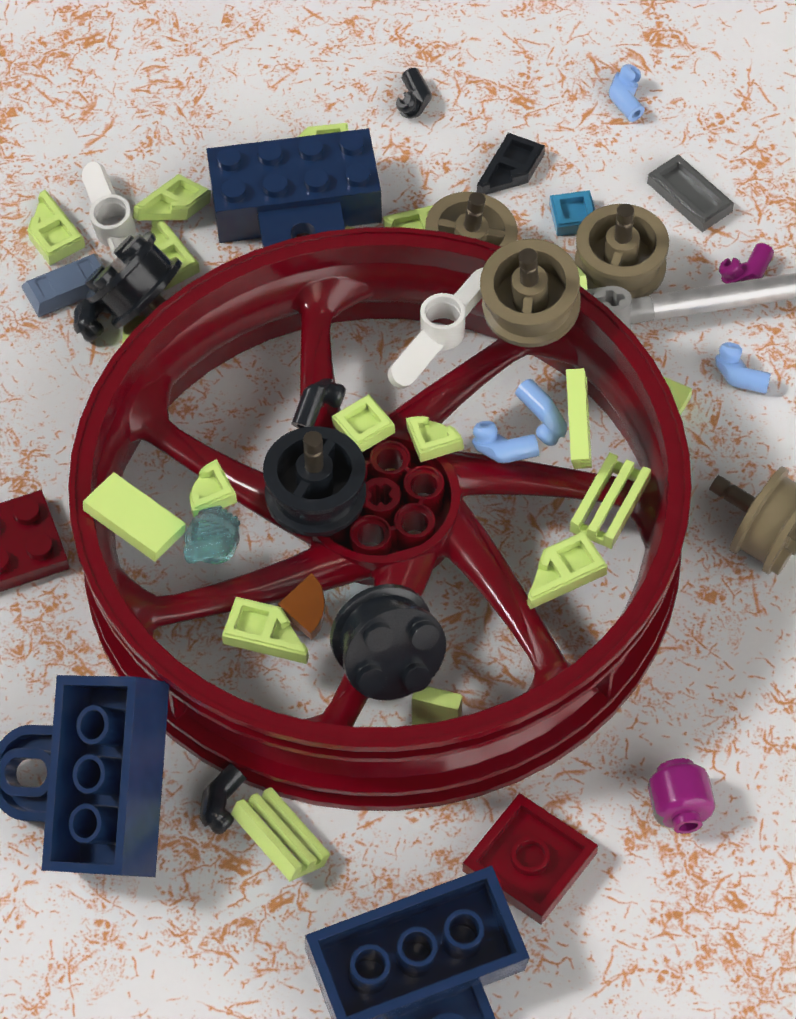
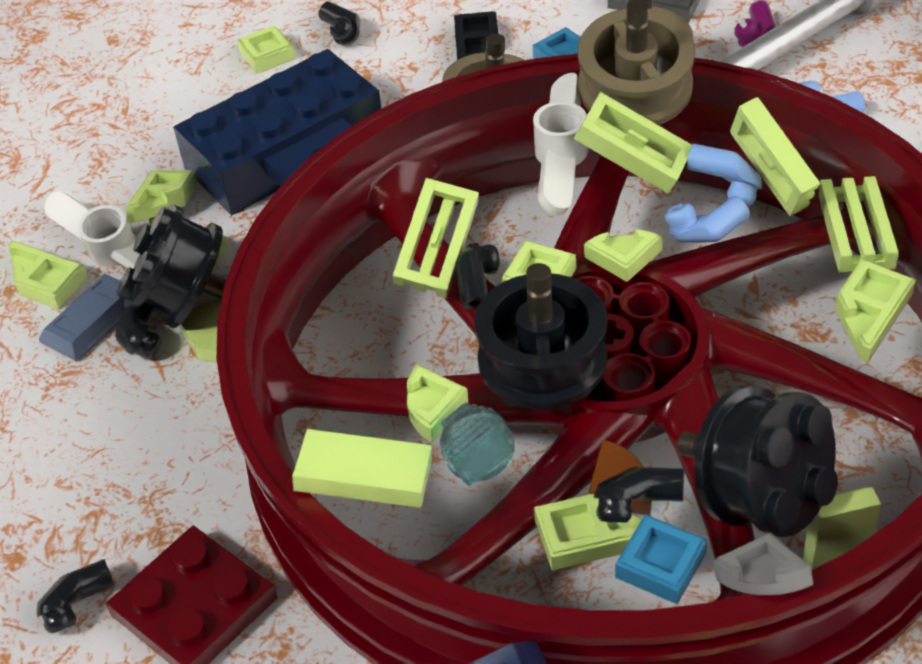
camera: 25 degrees left, 10 degrees down
(273, 671) = (661, 559): none -> dark azure tile
(290, 615) = (637, 483): none -> black arm
(291, 349) = (423, 280): none -> yellowish green tile
(326, 709) = (763, 568): none -> light grey tile
(339, 91) = (266, 49): none -> yellowish green tile
(469, 364) = (634, 142): none -> yellowish green tile

